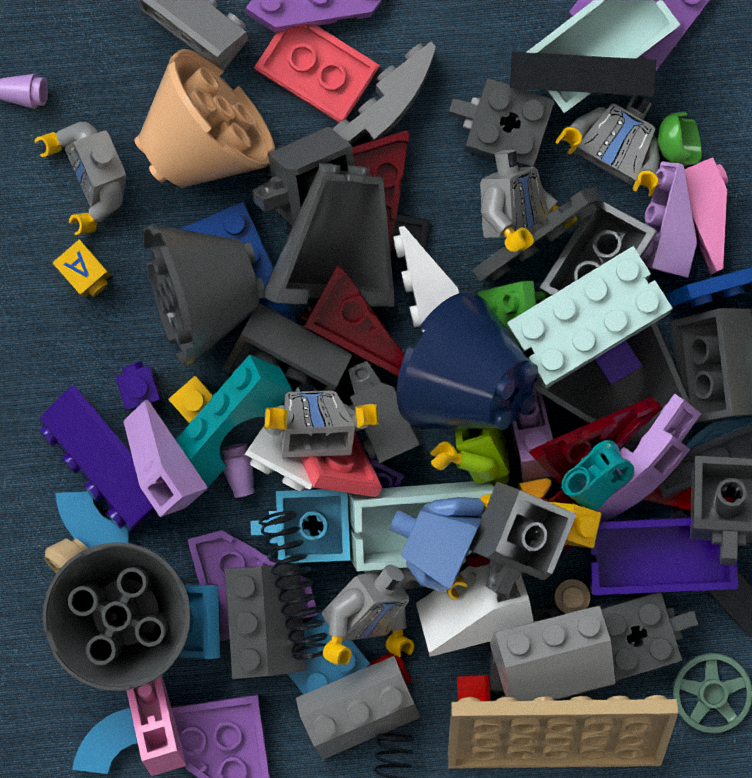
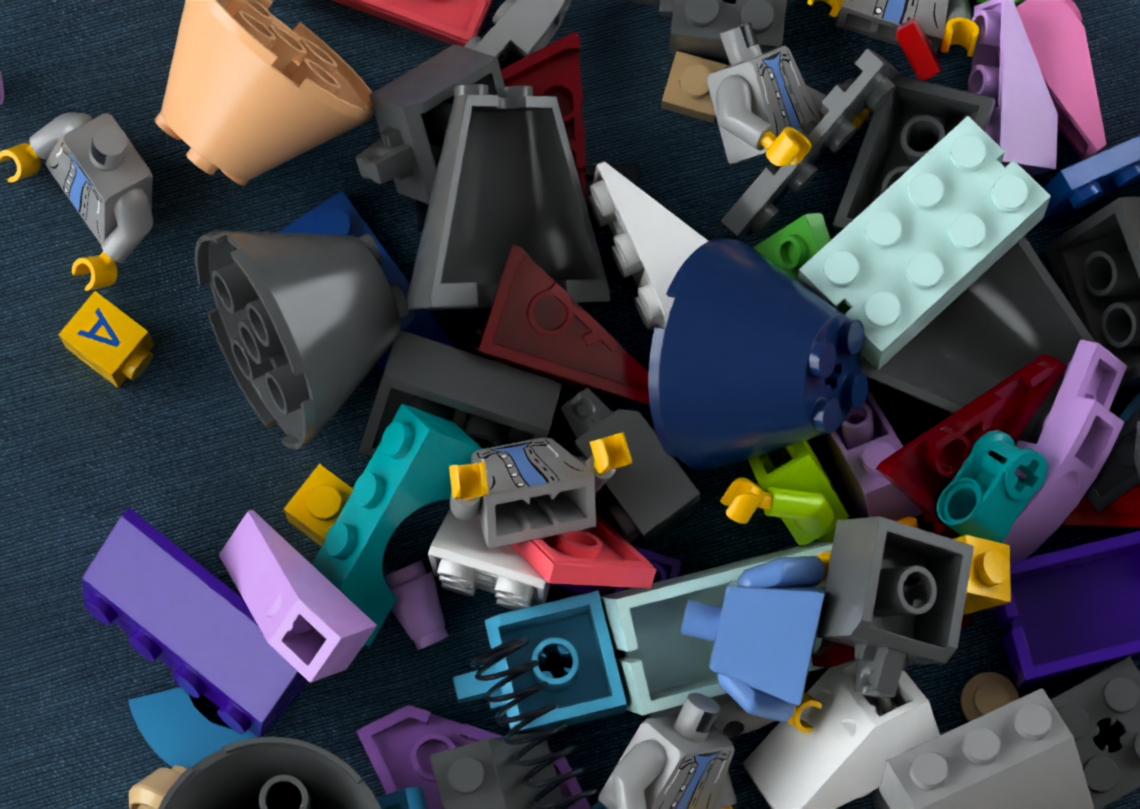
camera: 15 degrees left, 10 degrees down
(138, 385) = (227, 497): dark purple brick -> none
(471, 174) = (688, 87): none -> tan plate
(618, 186) = (918, 49): none -> red tile
(618, 363) = (978, 315): dark purple brick -> none

